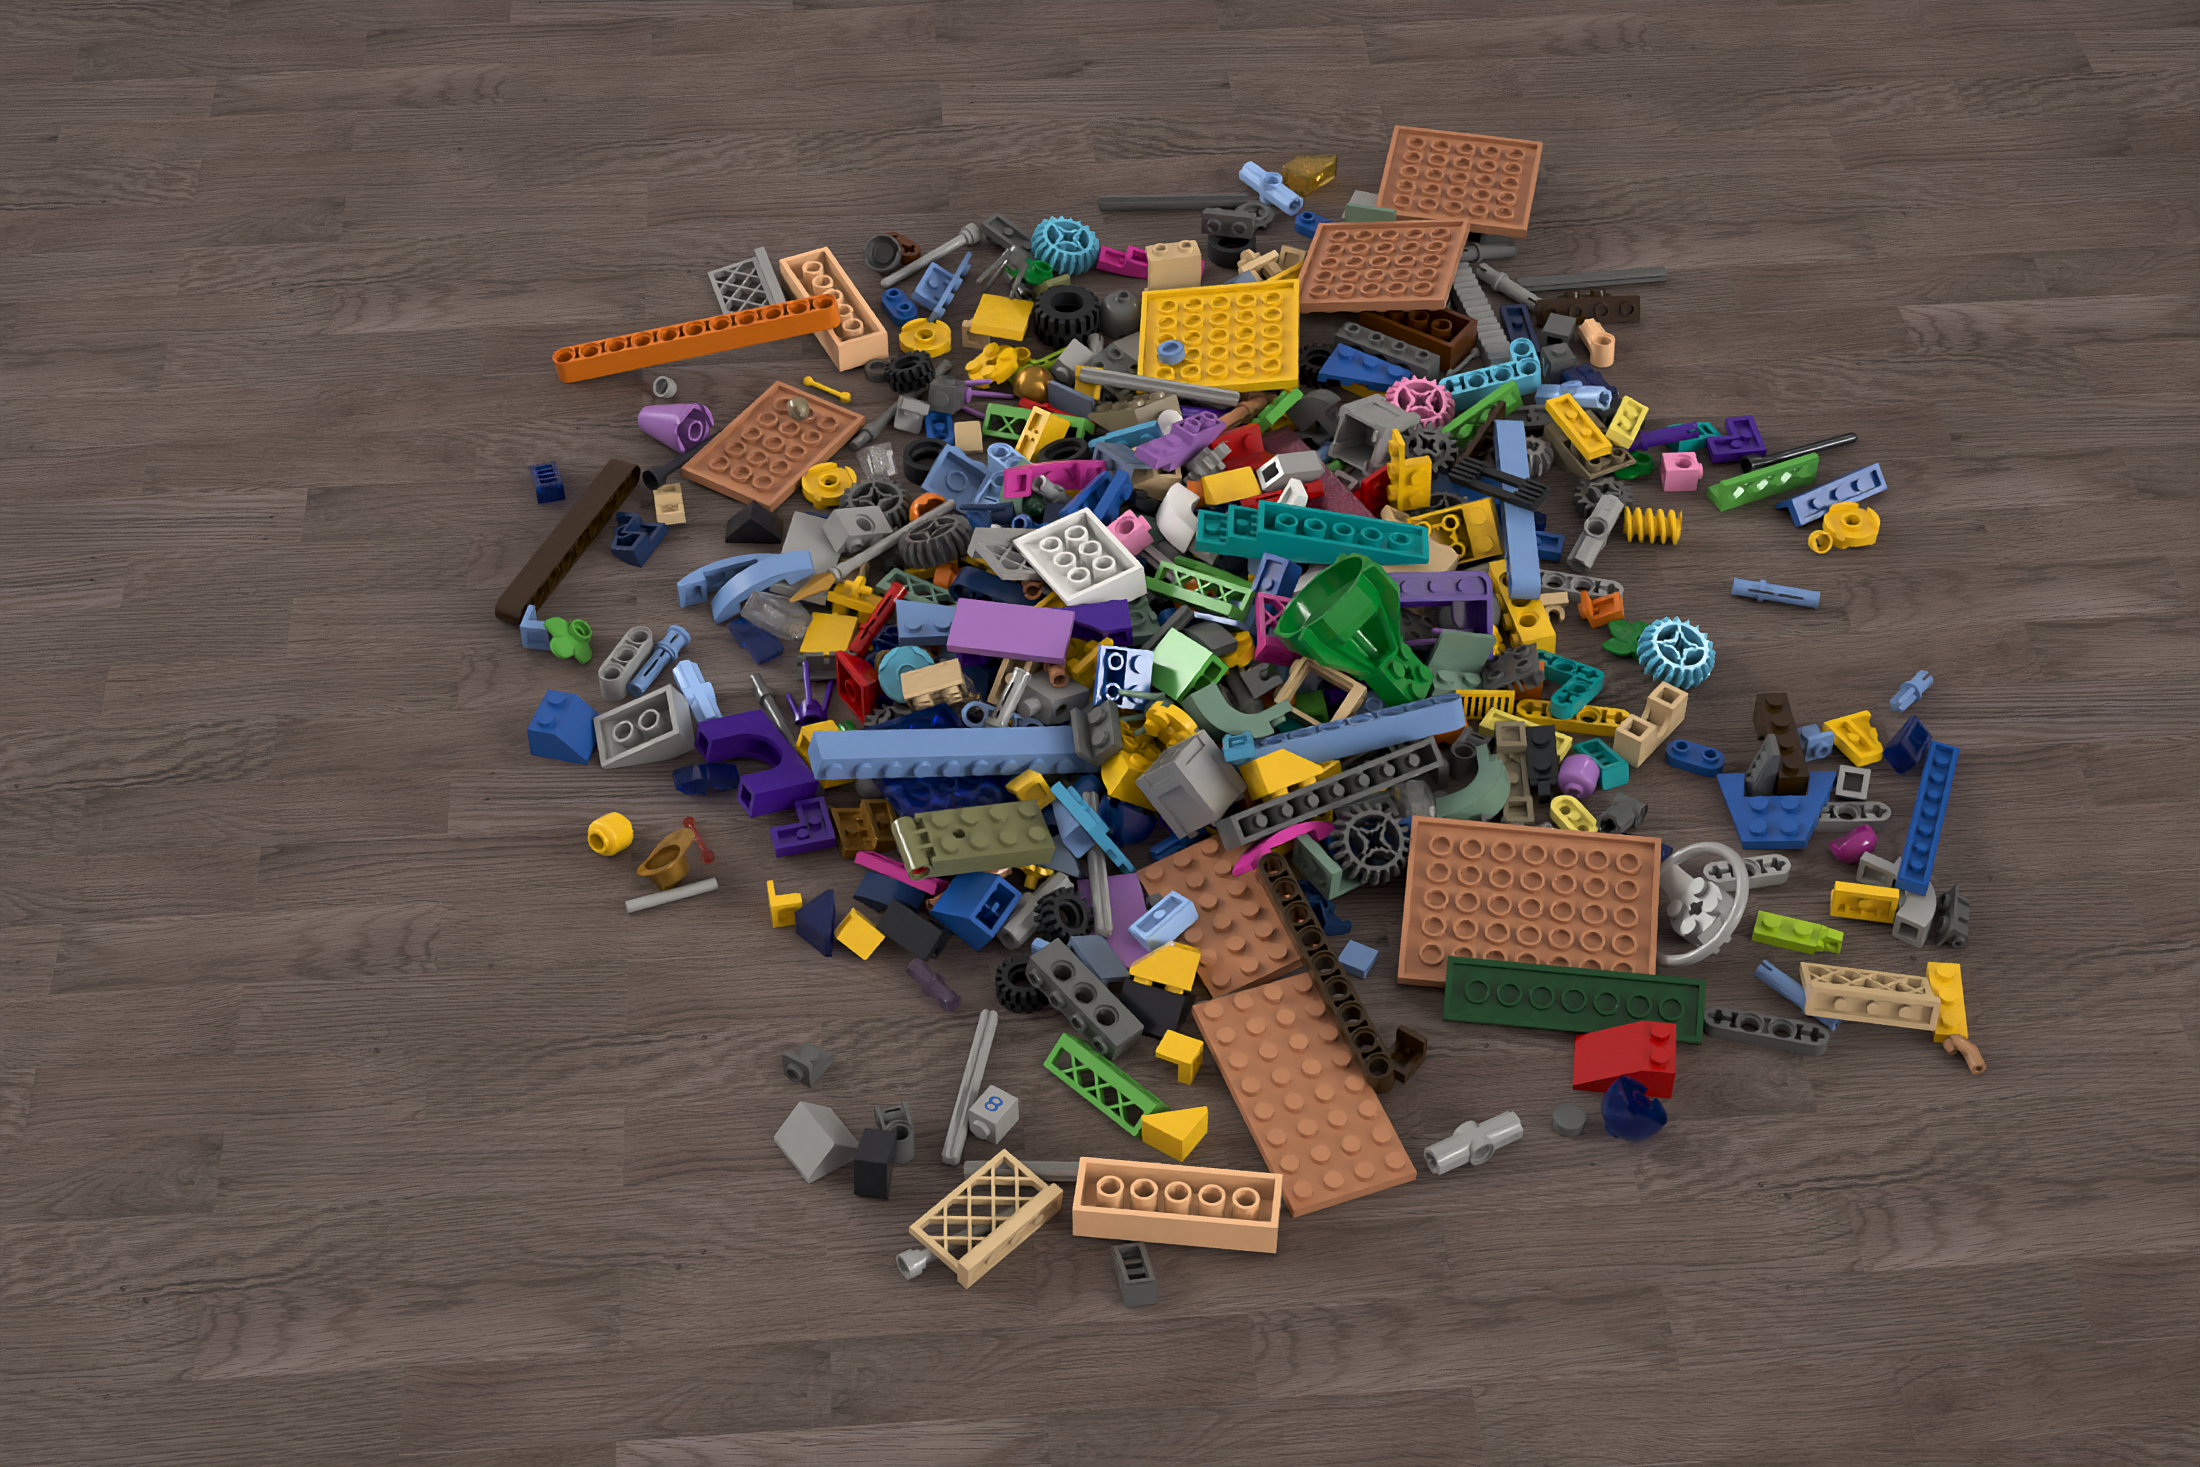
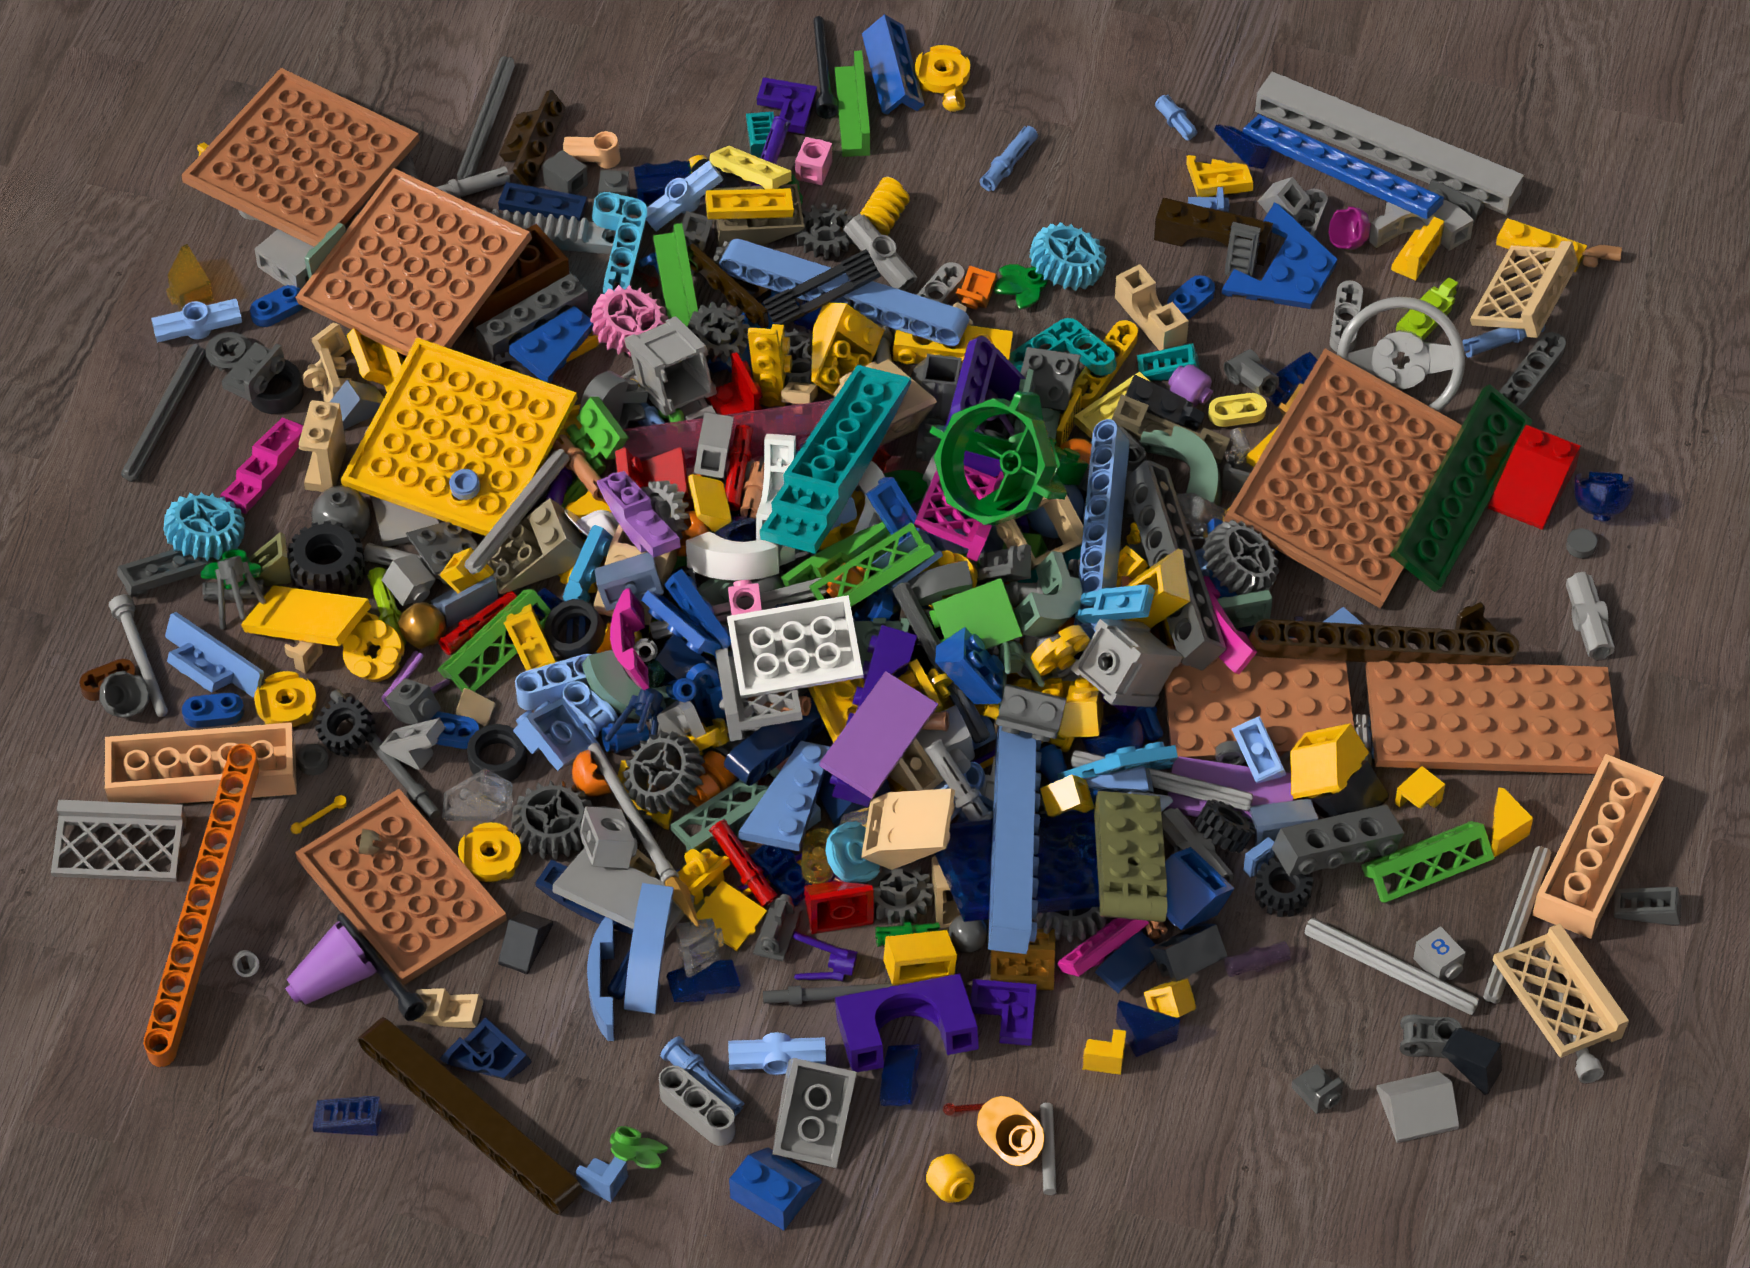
camera: 70 degrees left, 10 degrees up
(1992, 854) = (1388, 142): none -> light grey brick

